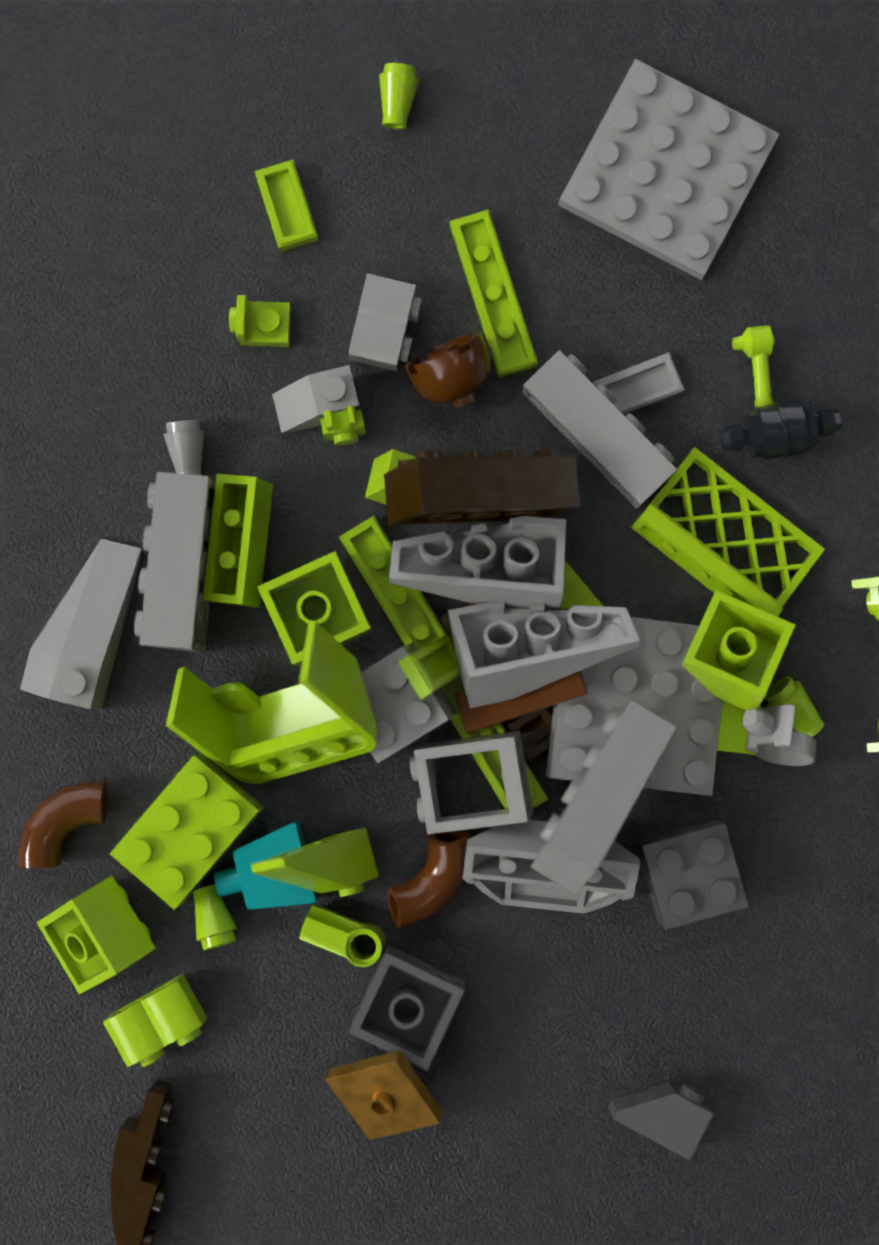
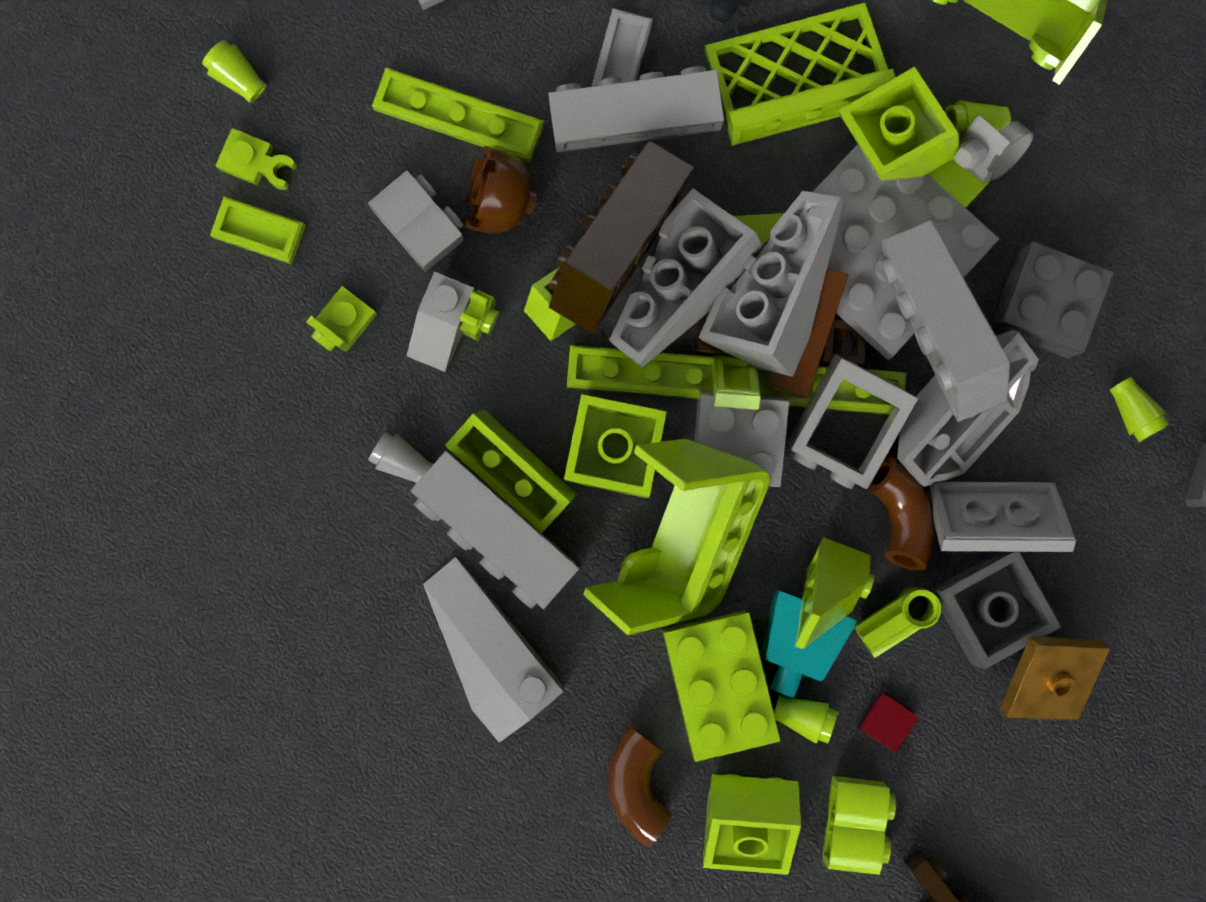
camera: 55 degrees left, 0 degrees up
(257, 987) = (888, 722): none -> dark red tile
(338, 159) = (251, 158): none -> lime plate
(483, 958) = (1000, 517): none -> light grey tile
(655, 1010) = (1138, 410): none -> lime cone

